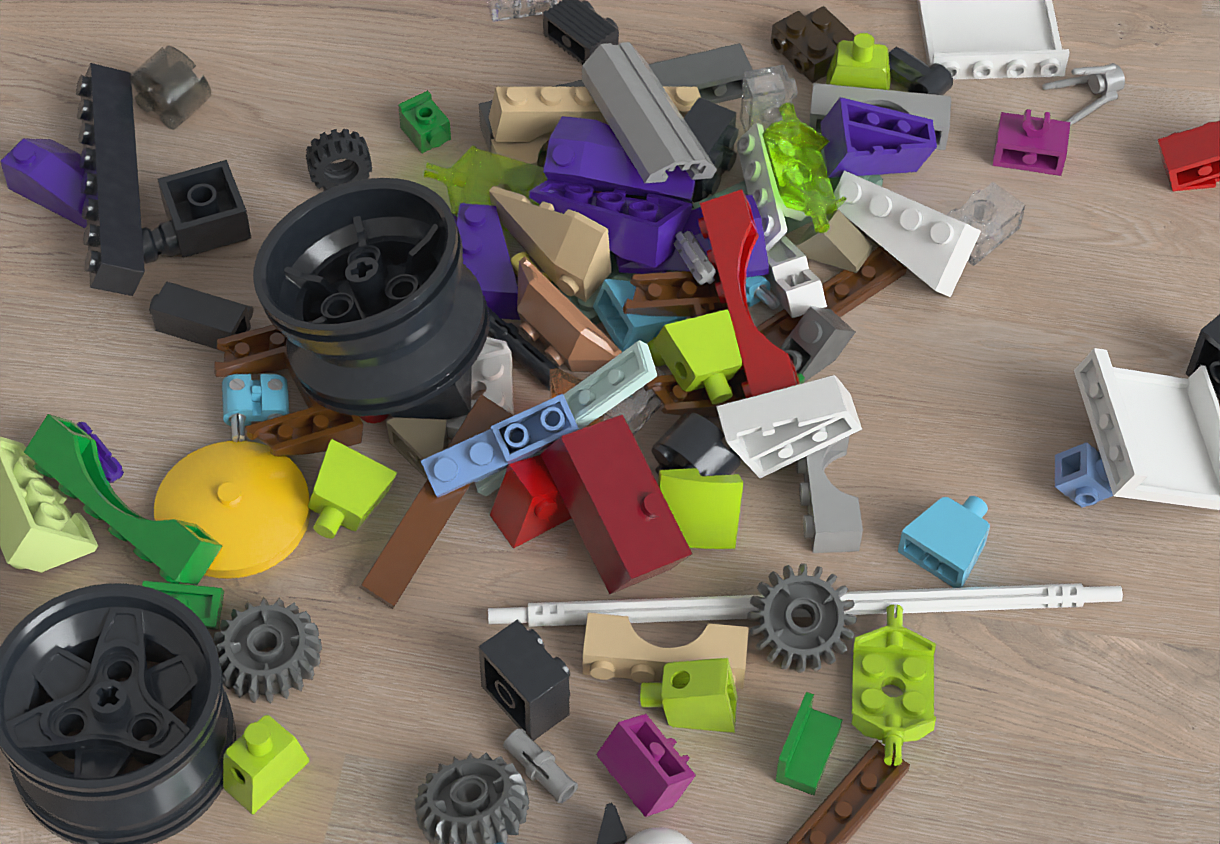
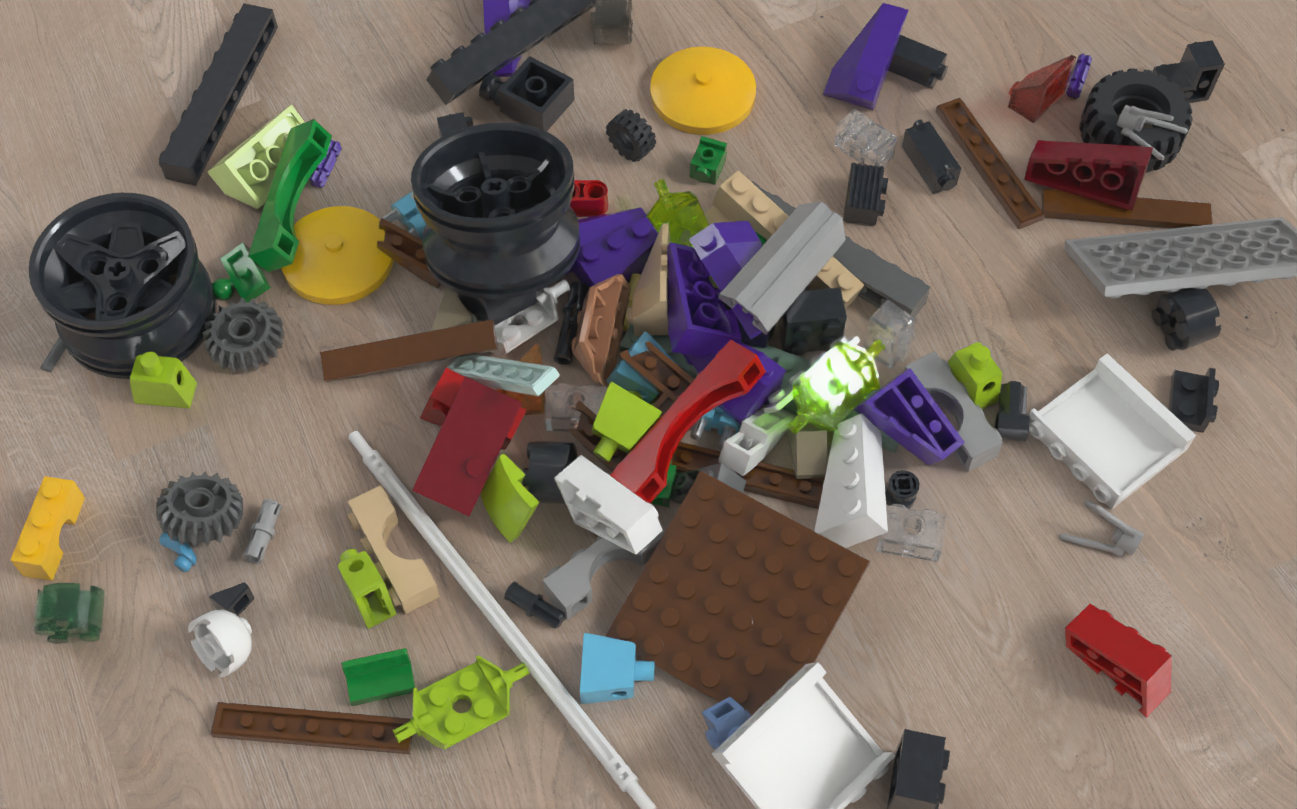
camera: 55 degrees right, 5 degrees up
(326, 78) = (703, 90): none -> yellow dish
(347, 489) = (383, 300): lime torso -> none
(499, 446) = (451, 352): medium blue slope -> none
(525, 679) = (305, 481): black brick -> none
(646, 764) = (295, 589): magenta brick -> none
(695, 257) = (687, 376): light grey axle -> none
(788, 638) = (449, 611): dark grey gear -> none
(810, 41) = (989, 327): dark brown plate -> none
(834, 561) = (534, 605): none -> black axle
(936, 195) = (906, 493): none -> black wheel
(957, 386) = (737, 596): none -> reddish brown plate
(1031, 143) = (1015, 522): magenta brick -> none

